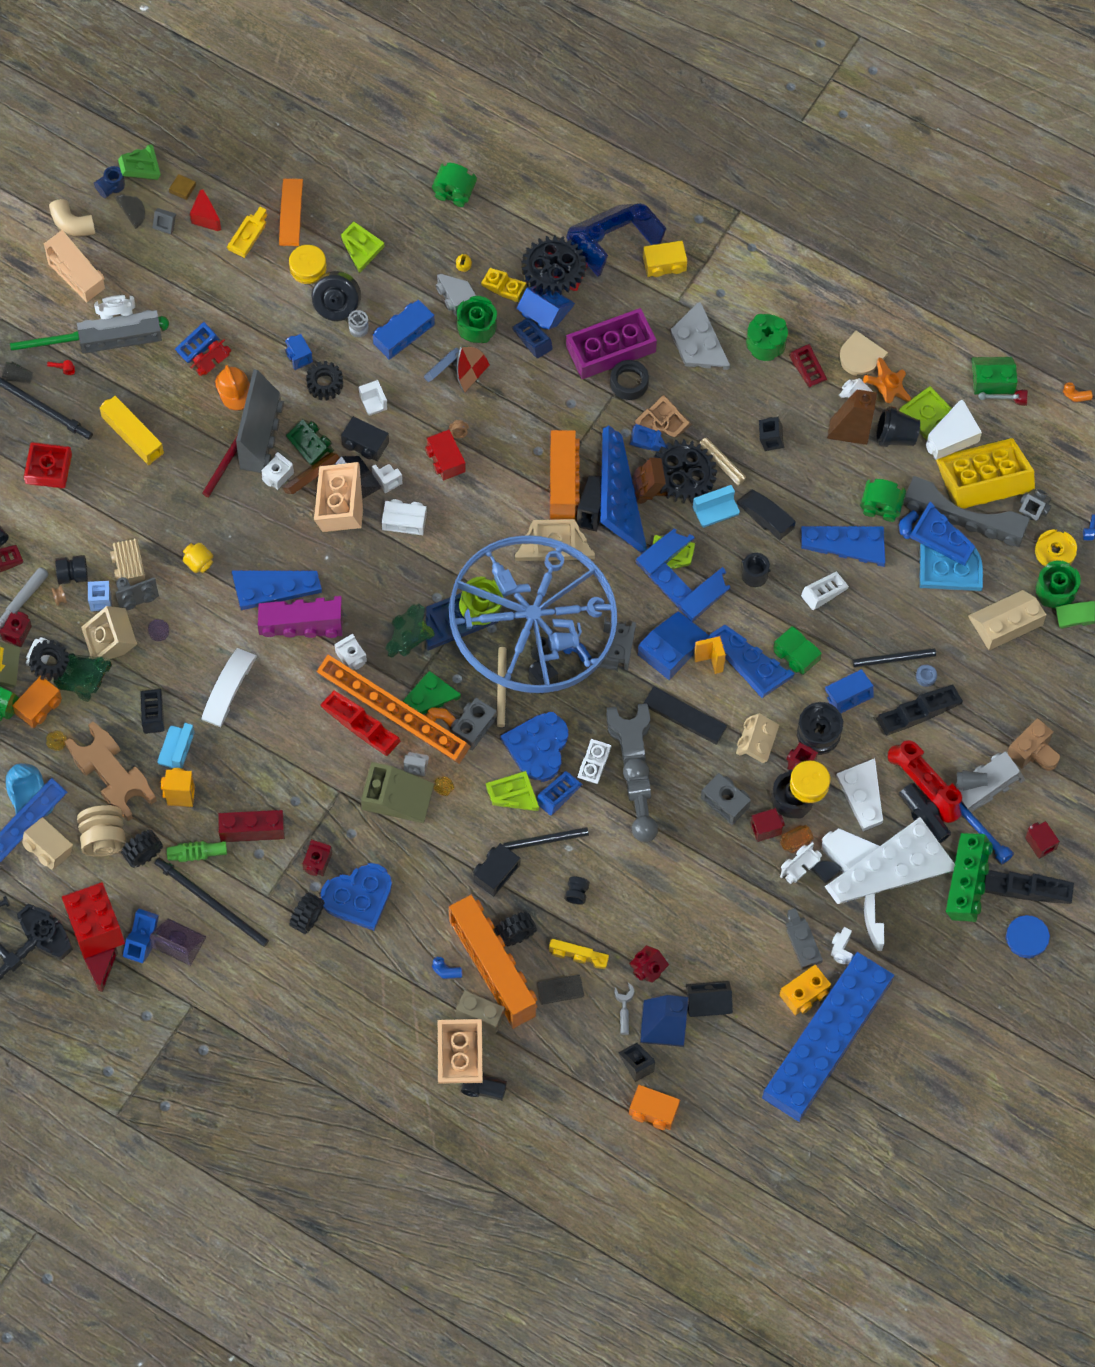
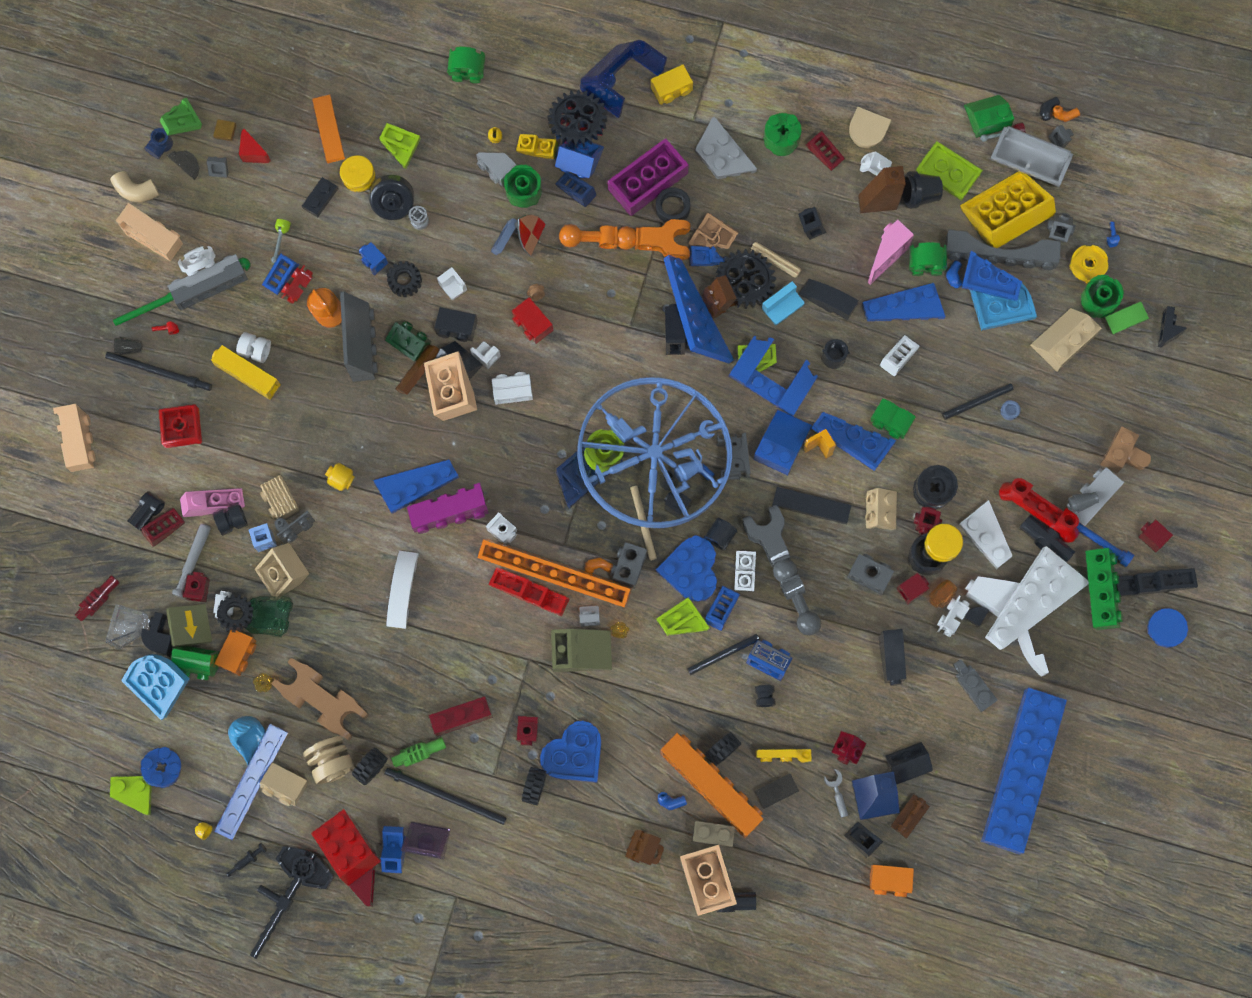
camera: 10 degrees left, 10 degrees up
(48, 546) = (207, 502): none -> bright pink slope
(59, 595) = (226, 546): medium nougat bush -> none
(148, 407) = (255, 347): none -> white wheel
(152, 724) = (343, 642): black slope -> none
(158, 630) = (324, 553): clear purple tile -> none
(176, 746) = (371, 658): medium azure panel -> none
(178, 787) = (385, 700): light orange brick -> none
(213, 297) = (282, 227): none -> hinge
(220, 469) = (336, 385): dark red bar -> none
(248, 233) = (296, 158): yellow hinge -> none
(261, 278) = (320, 197): none -> black plate
(279, 477) = (387, 383): white brick -> none
(401, 1003) = (643, 848): none -> reddish brown piece
(403, 329) = (460, 212): blue brick -> none
(407, 631) = (547, 496): clear green shield -> none
(430, 693) = (582, 547): green wing -> none
(496, 869) = (688, 696): black brick -> none
(562, 530) = (650, 365): tan wing -> none
(564, 474) = (642, 314): orange brick -> none
(579, 717) = (721, 534): none -> black piece
(588, 403) = (644, 238): none -> orange piece
(591, 855) = (769, 659): none -> blue slope
(694, 1051) = (910, 816): none -> reddish brown hinge
(723, 884) = (893, 656): none -> black slope
(805, 990) = (991, 733): light orange brick -> none
(840, 942) = (1008, 679): white bracket -> none
(844, 480) = (894, 244): none -> bright pink slope
(850, 691) = (949, 444): blue hinge -> none
(888, 382) = (900, 148): orange animal -> none
(919, 710) = (1014, 444): black slope -> none
(953, 432) = (972, 179): white slope -> none
(1026, 425) = (1032, 156): none -> light grey container
(1058, 382) = (1046, 108): none -> black arm
(1064, 415) = (1061, 136): none -> dark grey tile

